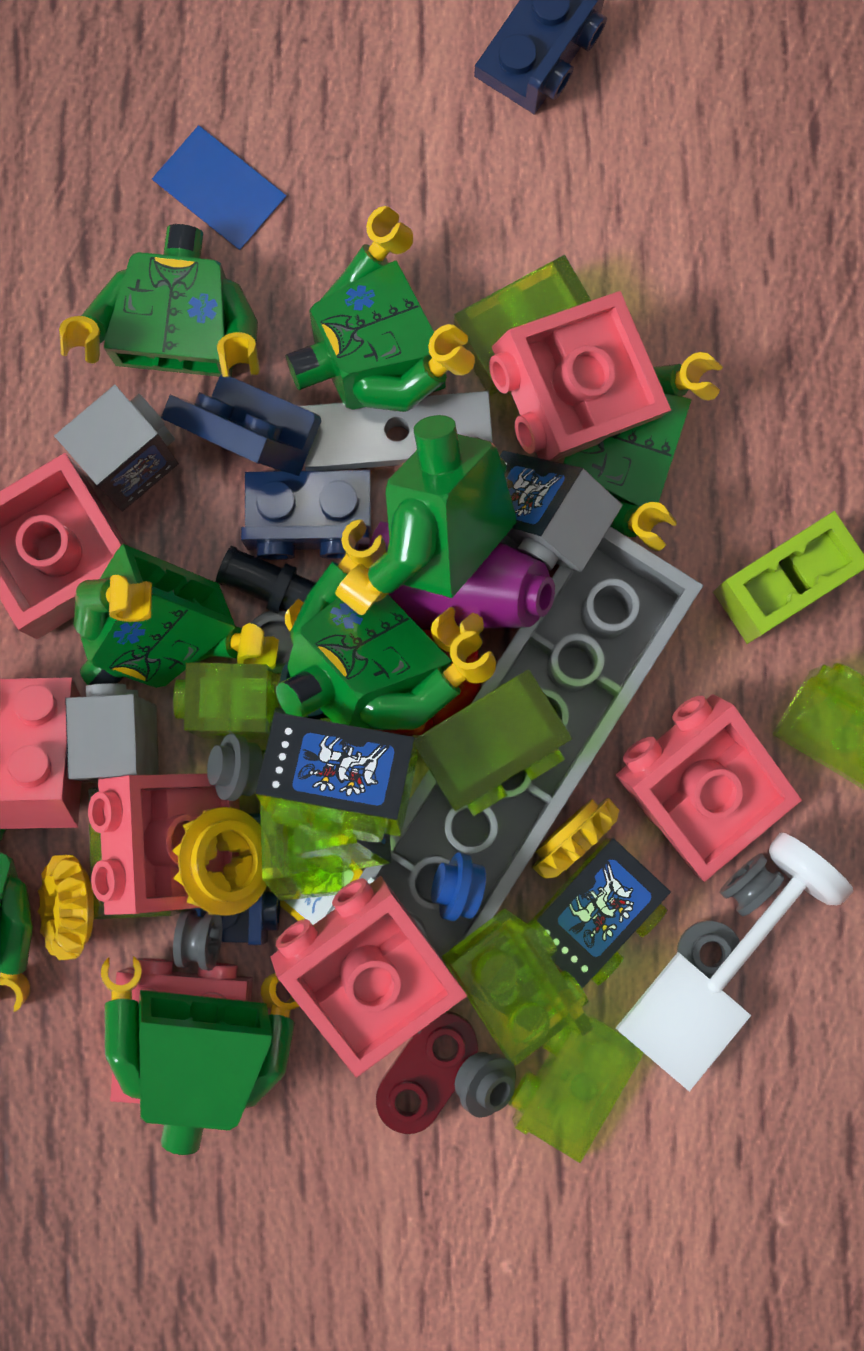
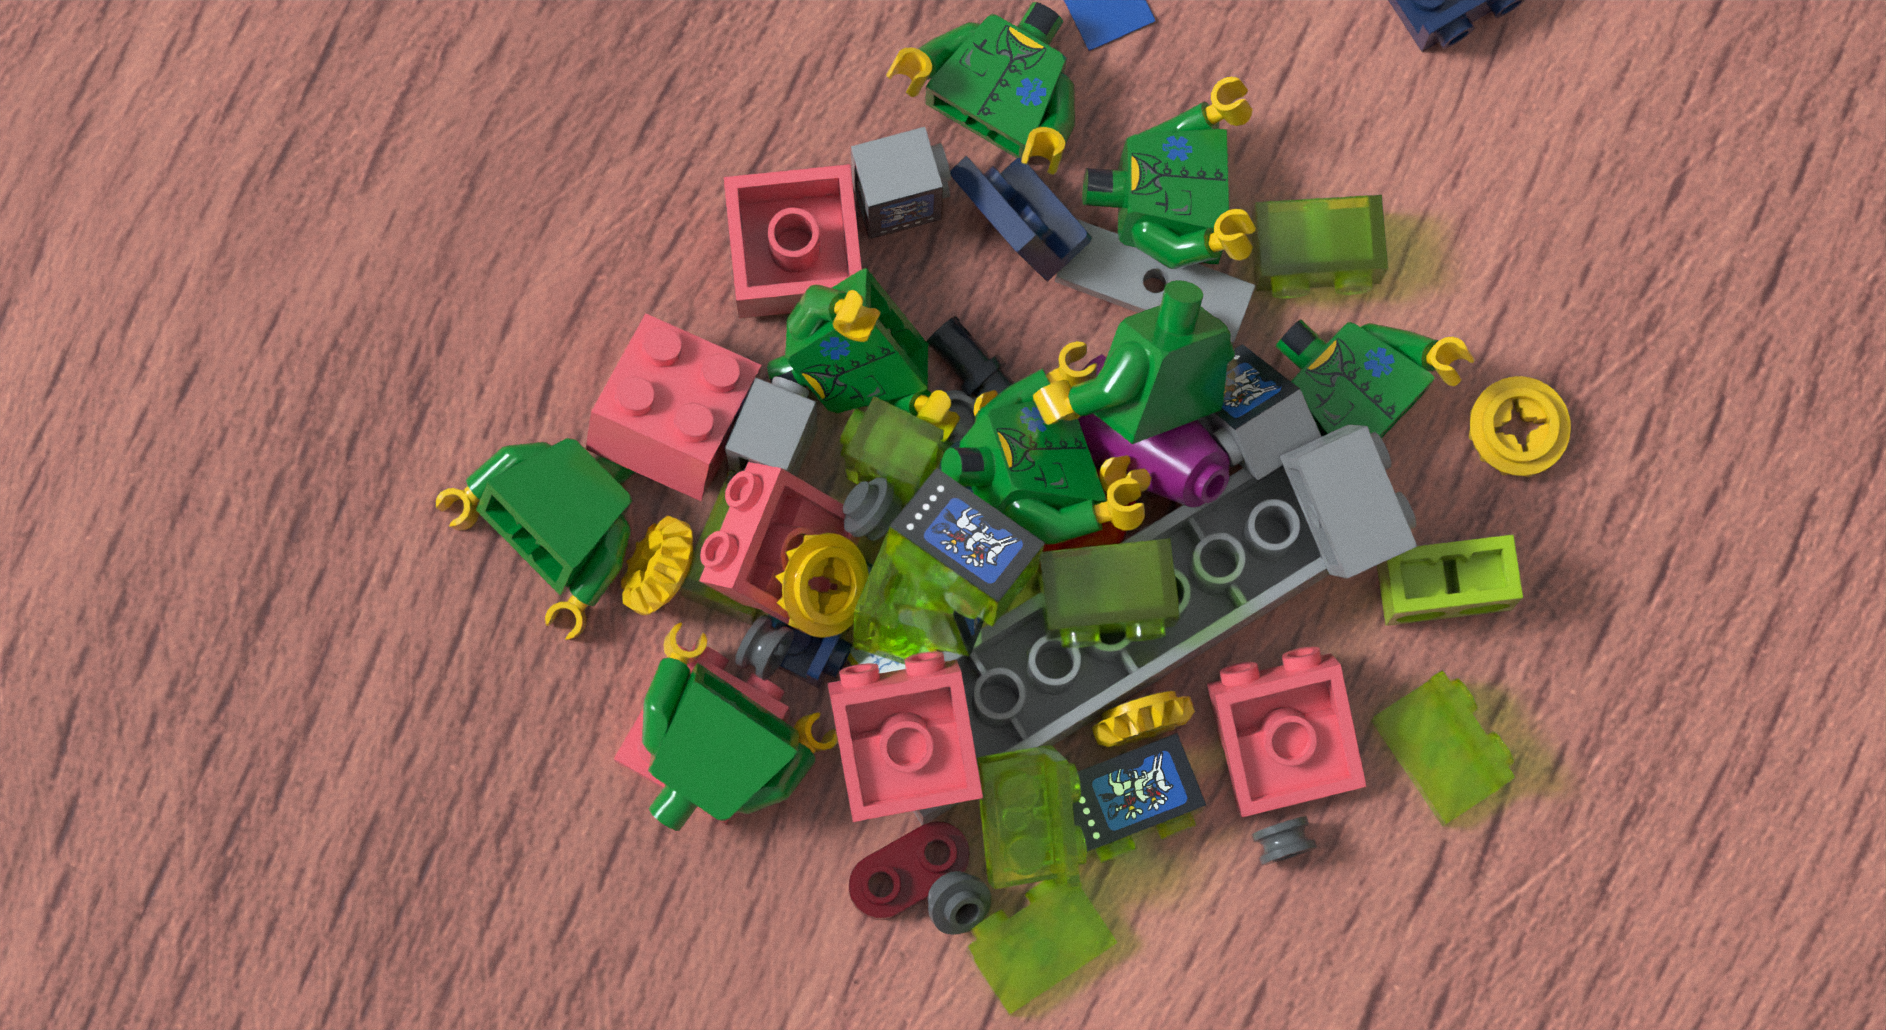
camera: 20 degrees right, 5 degrees down
(304, 512) = (1036, 316): bracket -> none
(458, 887) = (1019, 702): blue plate -> none
(577, 377) = (1337, 310): coral plate -> none
(678, 551) = (1350, 500): none -> light grey brick
(688, 1017) = (1169, 928): white piece -> none
(701, 933) = (1212, 905): dark grey plate -> none
(782, 380) = (1535, 403): none -> yellow gear

